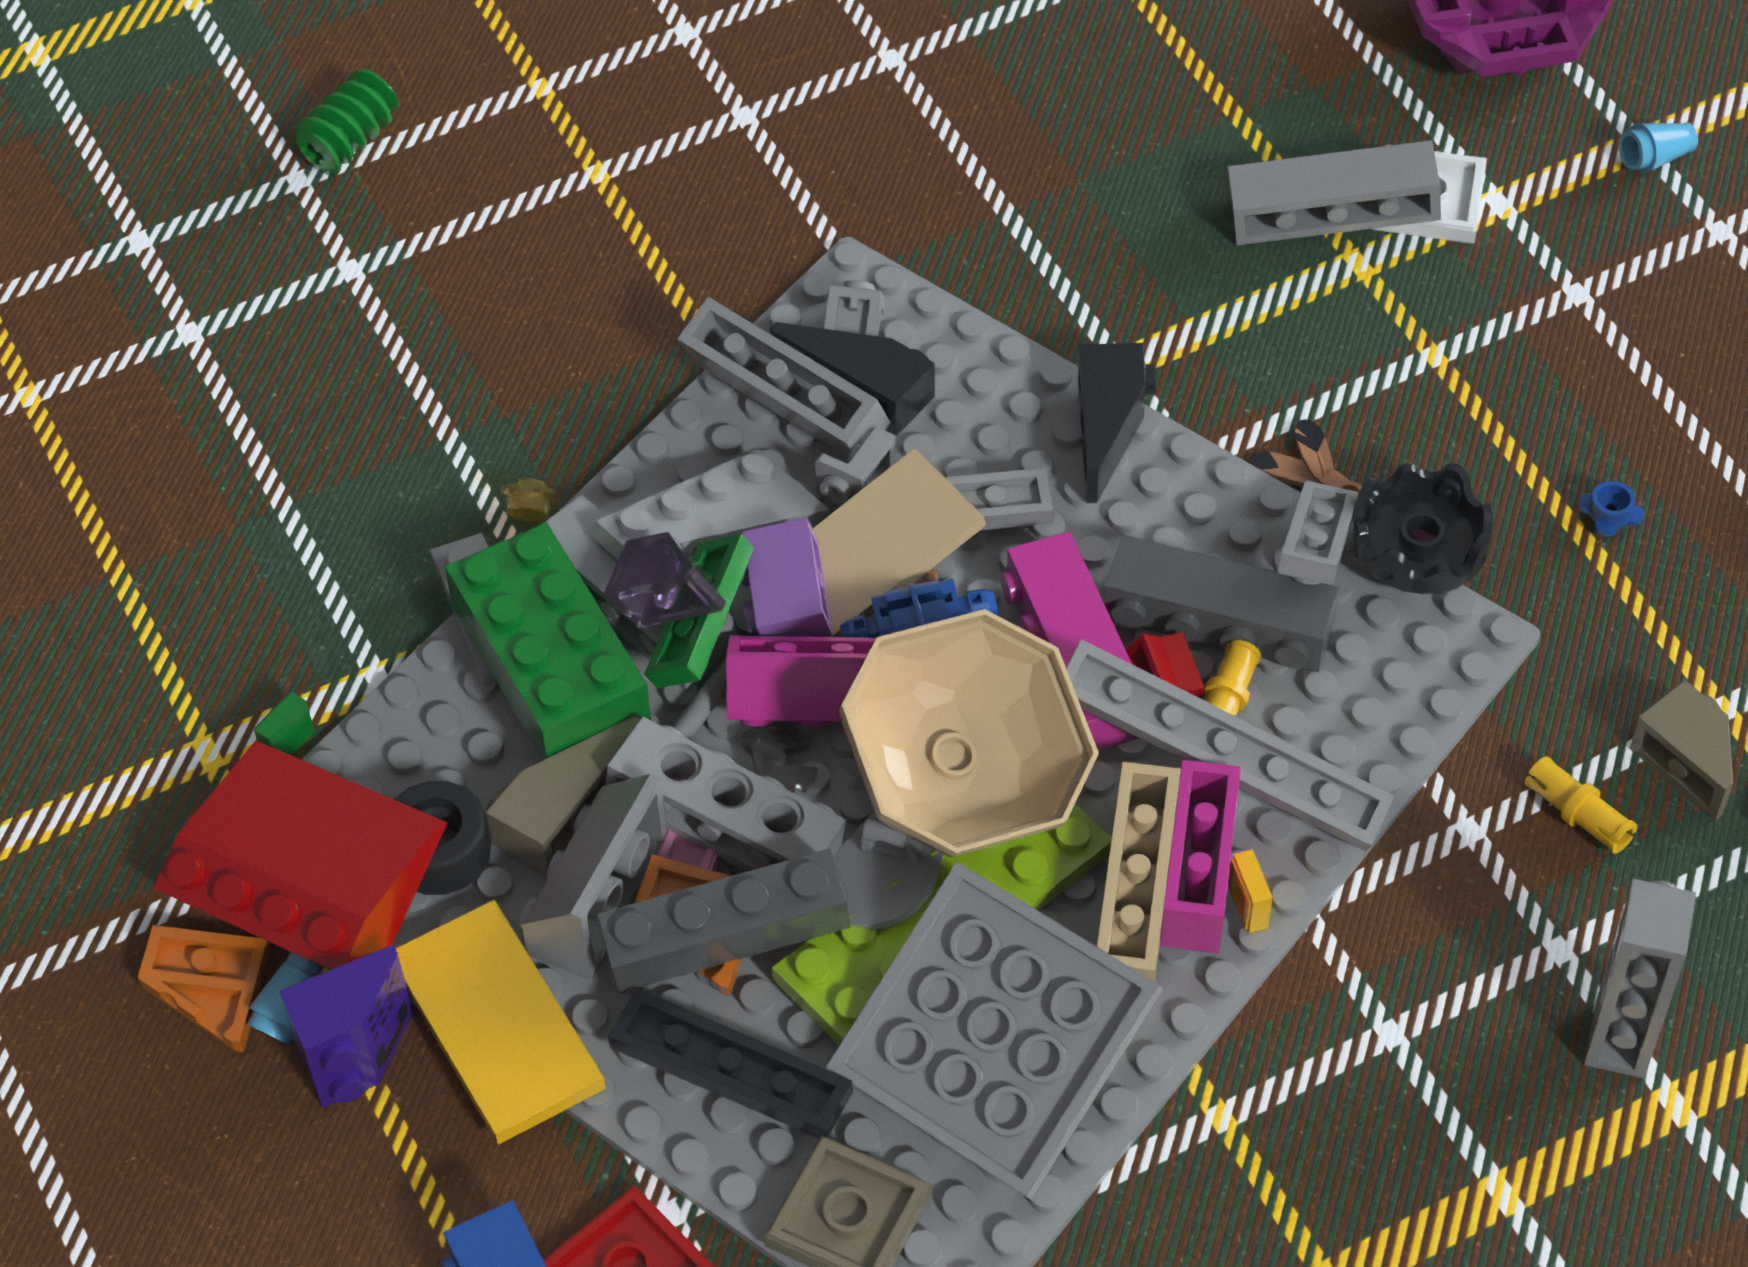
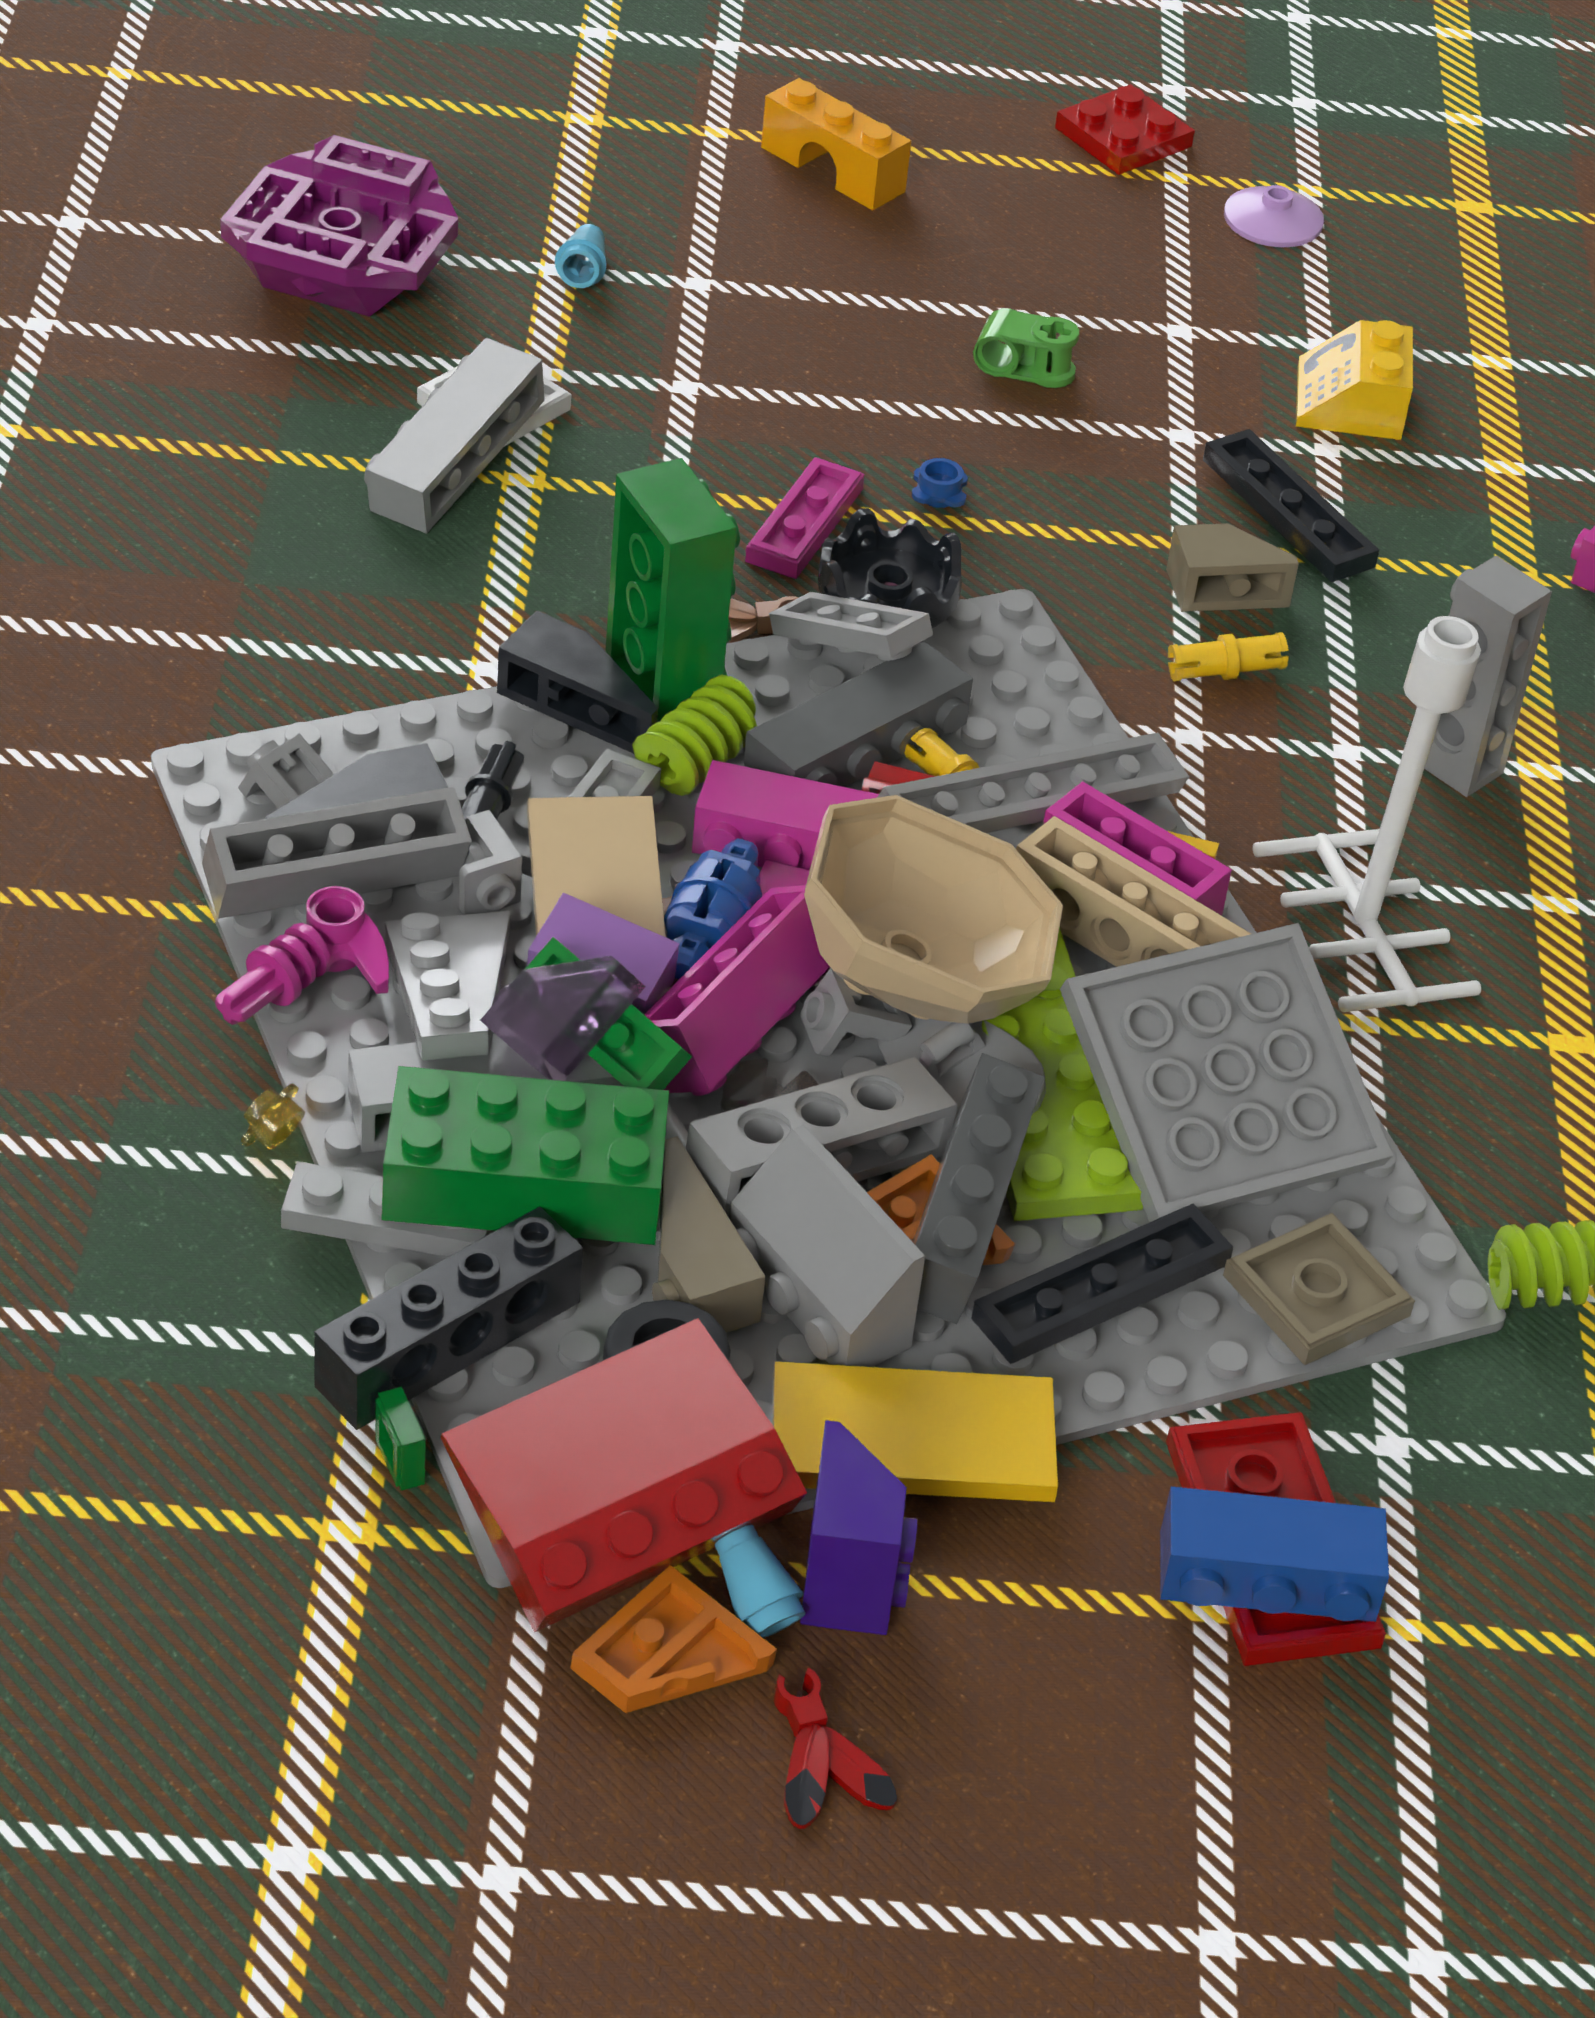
camera: 65 degrees left, 10 degrees down
(180, 1119) = (821, 1753): none -> red piece
(391, 690) = (448, 1315): none -> black brick
(712, 426) = (332, 940): none -> dark pink piece
(945, 429) = (493, 783): none -> black axle
(1108, 512) = (699, 730): none -> lime piece
(1183, 397) = (669, 582): none -> green brick
(1386, 915) = (1437, 685): none -> white piece
(1488, 445) = (804, 518): none -> dark pink tile

